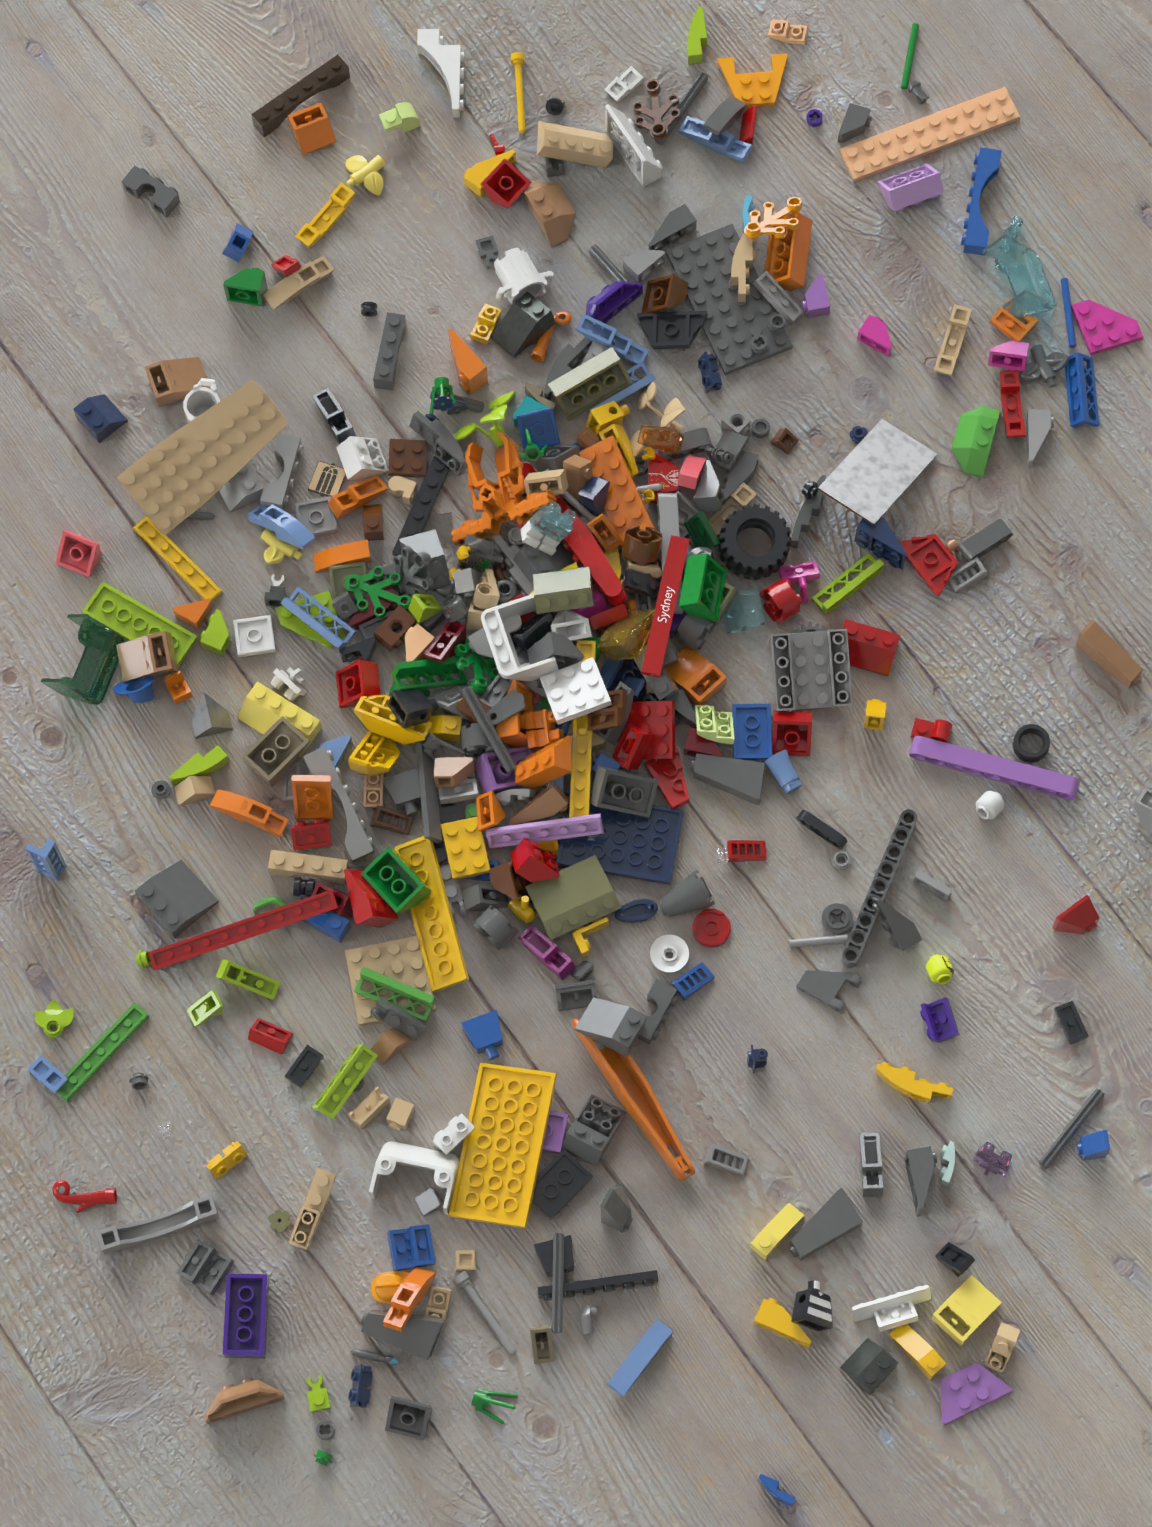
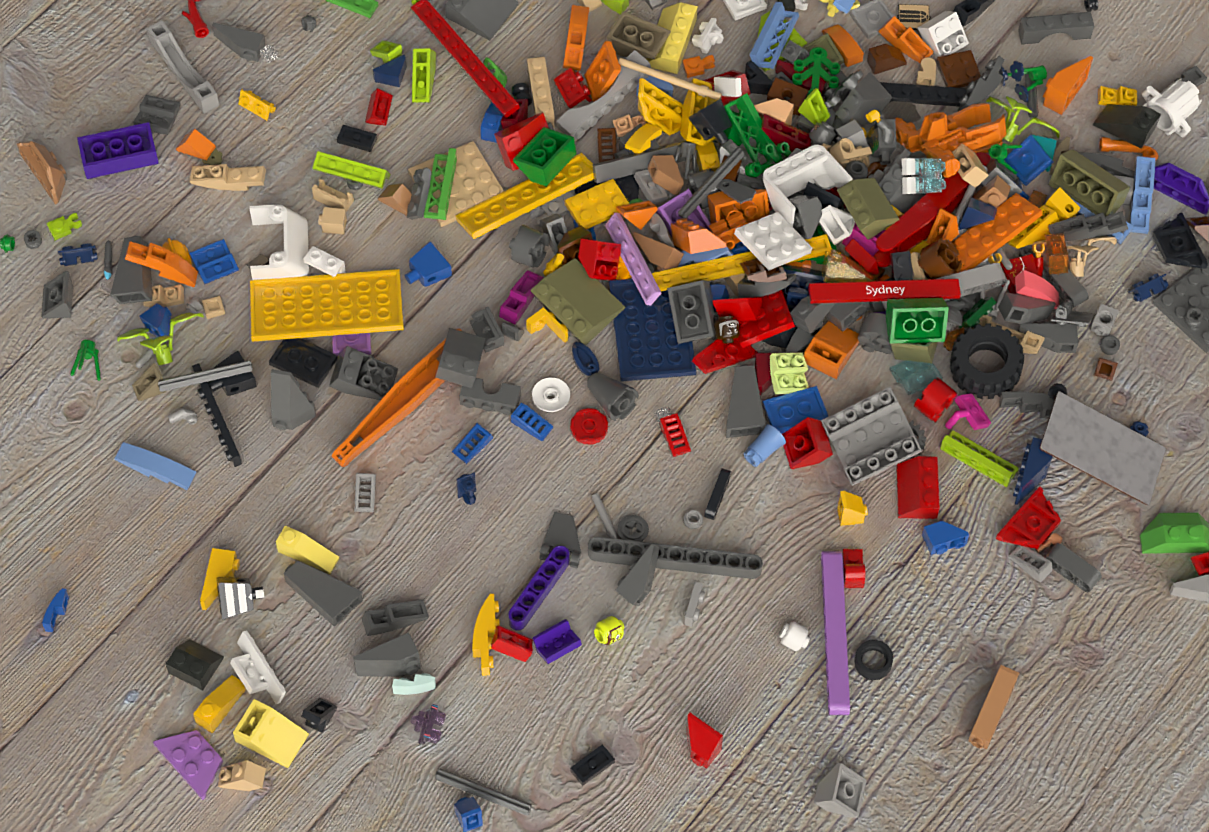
camera: 70 degrees right, 10 degrees down
(143, 1155) = (242, 42): none -> dark grey slope
(234, 1009) = (391, 72): none -> dark blue slope
(261, 1234) = (196, 145): none -> orange slope
(321, 707) = (696, 66): none -> orange plate
(375, 704) = (701, 90): none -> tan bar
(377, 679) = (728, 86): none -> white tile
(407, 780) = (642, 138): none -> yellow slope
(473, 1318) = (157, 320): none -> blue slope
(513, 1321) = (157, 344): none -> lime plant
(638, 400) = (1090, 227): none -> dark grey slope
(652, 765) = (726, 329): none -> dark brown head
(686, 1034) = (487, 437): none -> blue slope
(875, 1012) = (538, 596): none -> dark purple beam
(923, 642) = (943, 536): none -> blue slope
(930, 1061) = (512, 644): none -> red slope

